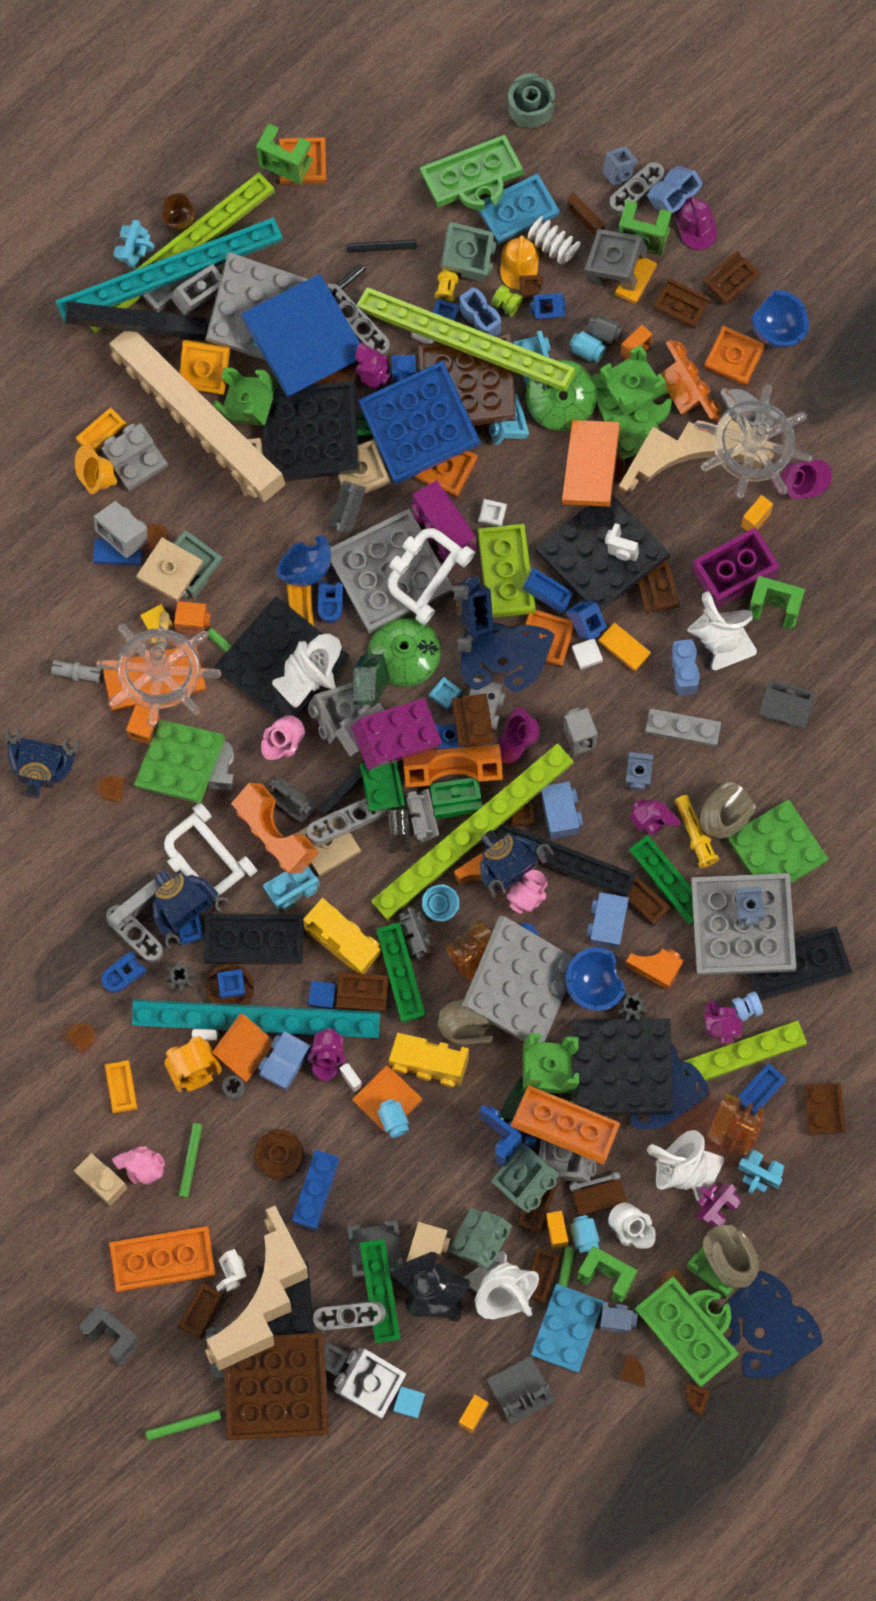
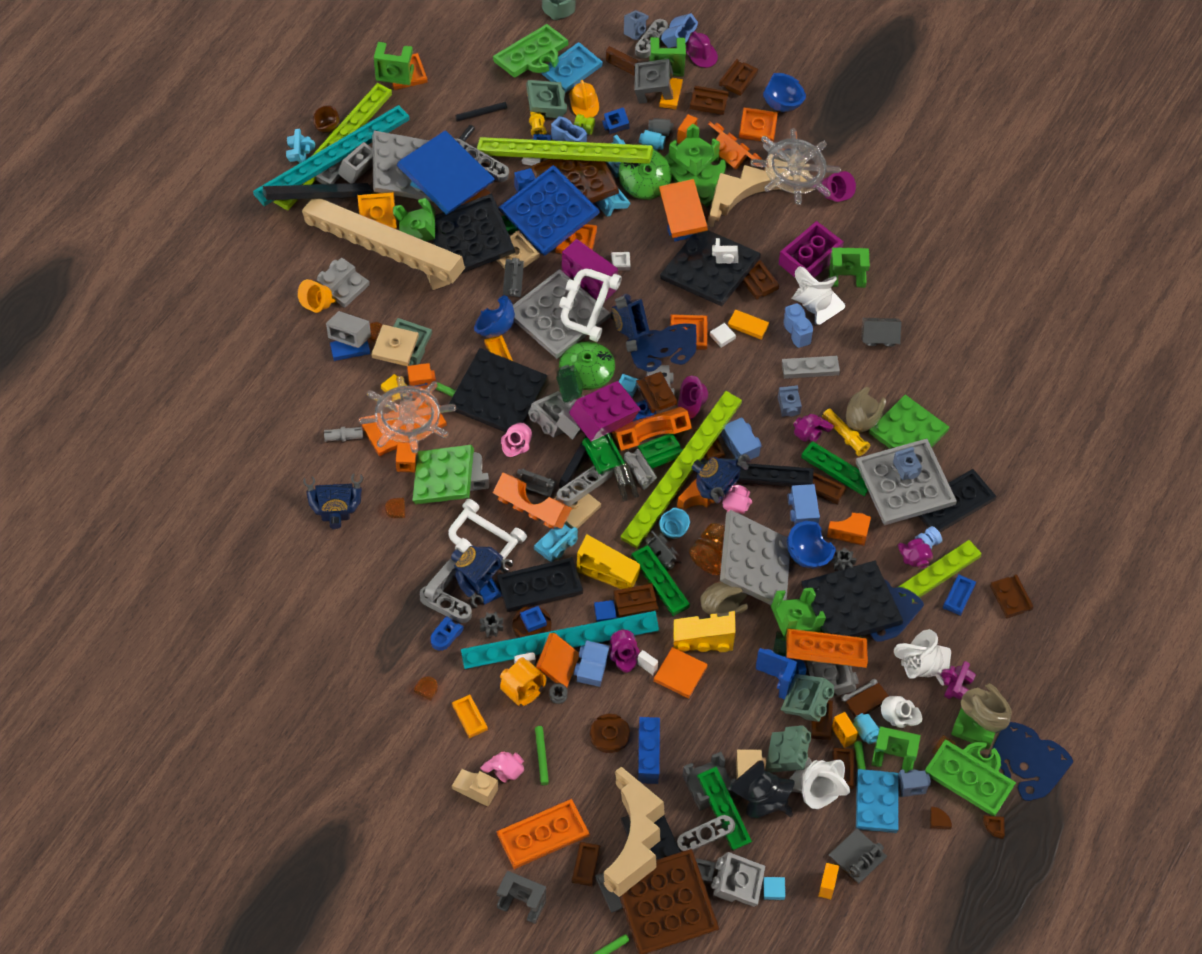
camera: 20 degrees left, 15 degrees down
(104, 427) = (312, 269): light orange tile -> none
(233, 1269) = (602, 825): white bracket -> none
(307, 671) = (522, 386): white helmet -> none
(330, 608) = (521, 348): blue plate -> none
(372, 367) = (502, 184): magenta head -> none
(393, 1118) = (691, 681): medium azure brick -> none
(505, 569) = (642, 284): lime tile -> none
(530, 285) = (597, 112): reddish brown tile -> none
(547, 590) = (679, 298): blue tile -> none
(552, 242) = (604, 81): white piece -> none
(580, 731) = (738, 380): light grey brick -> none
(587, 619) = (716, 310): blue brick -> none
(736, 1124) = (953, 618): clear orange wheel -> none
(750, 1166) = (980, 652): medium azure hips -> none
(757, 514) = (814, 214): light orange piece -> none

